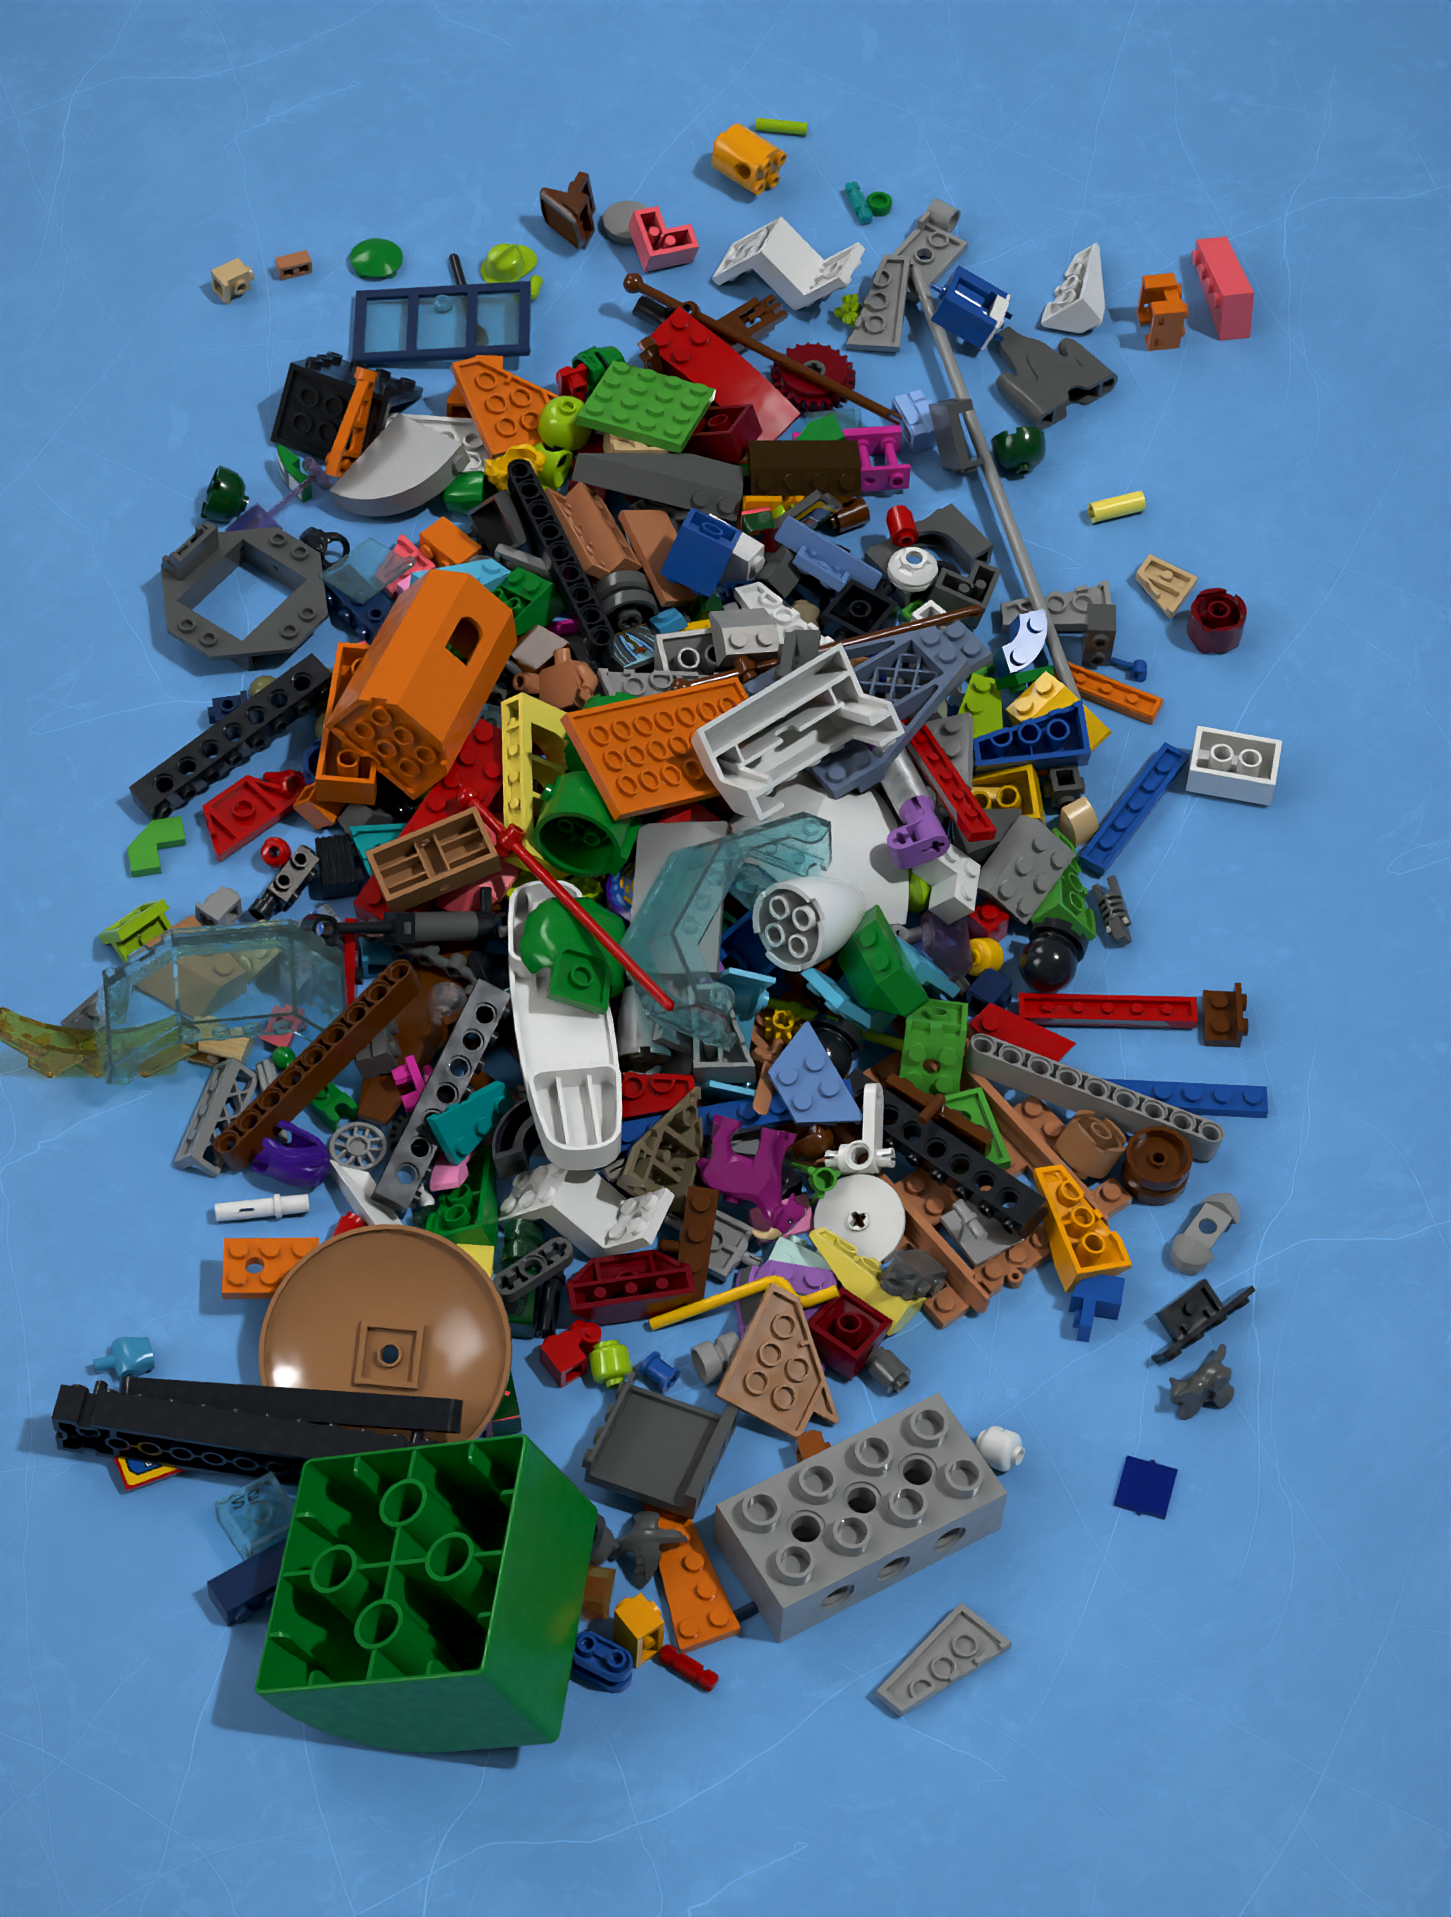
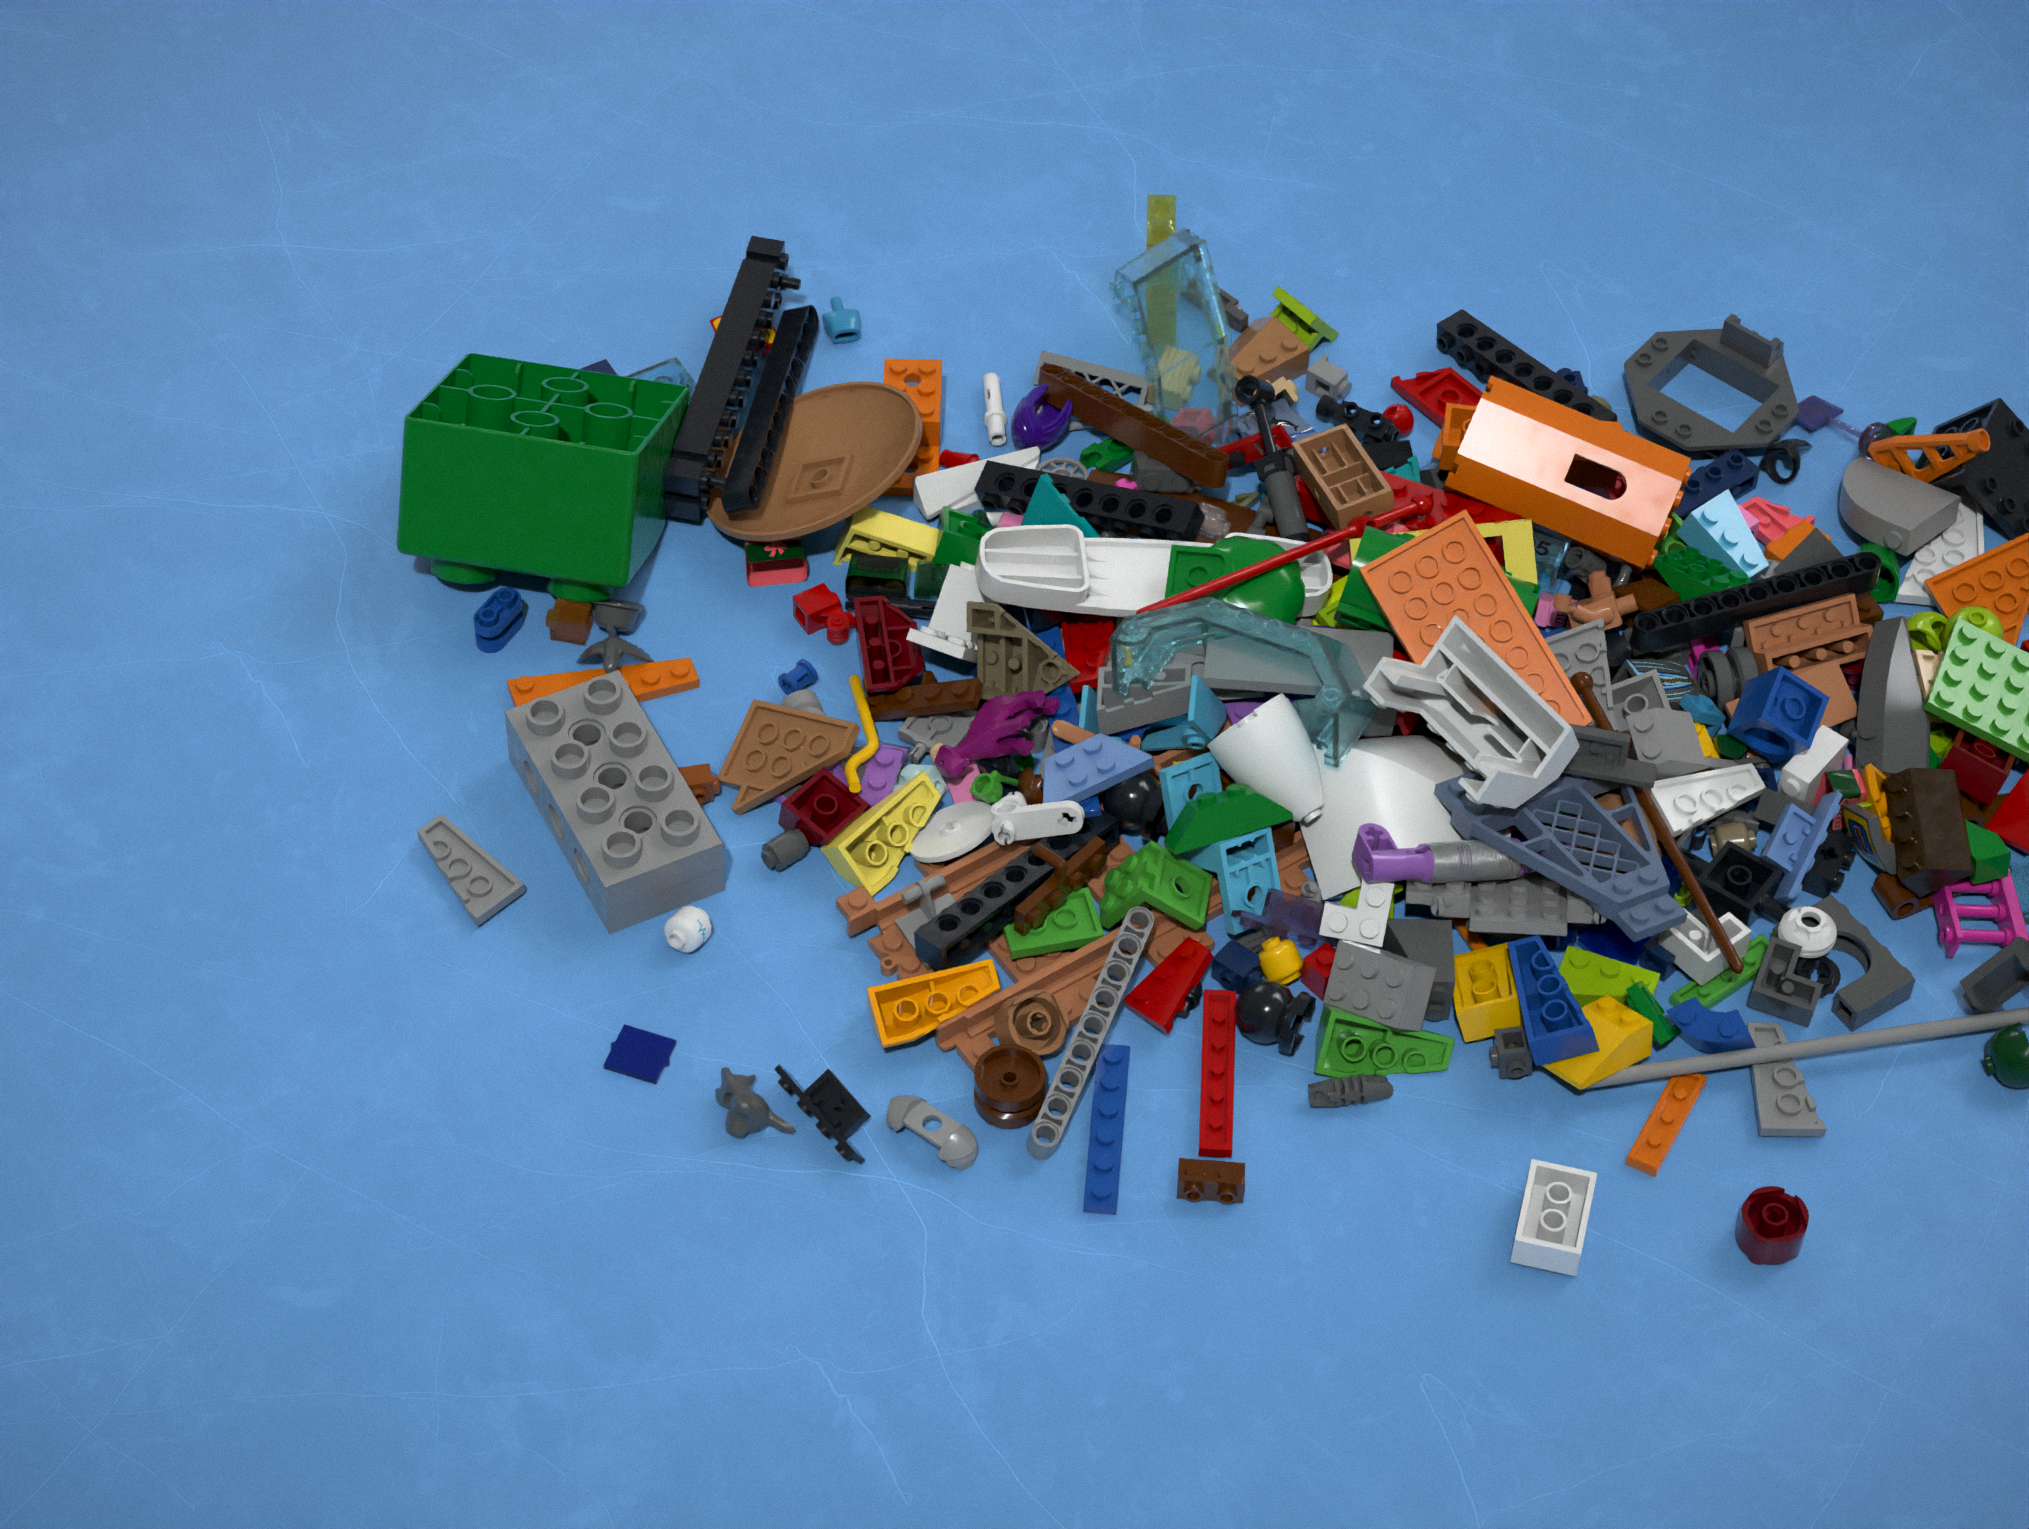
camera: 95 degrees right, 5 degrees down
(157, 835) = (1398, 333): bright green tile -> none
(224, 496) = (1845, 380): dark green cylinder -> none
(366, 570) = (1753, 481): clear light blue piece -> none
(497, 469) = (1900, 591): yellow hair -> none
(536, 1257) = (897, 561): dark grey beam -> none
(610, 1363) = (807, 641): lime head -> none
(639, 1628) = (520, 638): light orange brick -> none
(658, 1449) = (711, 665): dark grey panel -> none
(688, 1667) = (489, 687): red axle -> none
(901, 526) = (1863, 919): red brick -> none
(913, 1275) = (878, 858): dark grey hinge -> none
(949, 786) = (1463, 892): red plate -> none
(1078, 821) = (1469, 1068): tan brick -> none
(1095, 1297) = (851, 1020): blue brick -> none
(1098, 634) = (1731, 1101): dark grey brick -> none
(1116, 506) = (1947, 1154): light yellow piece -> none
(1133, 809) = (1488, 1119): blue plate -> none
(1138, 668) = (1699, 1152): blue hand -> none
(1165, 584) = (1832, 1190): tan wing -> none

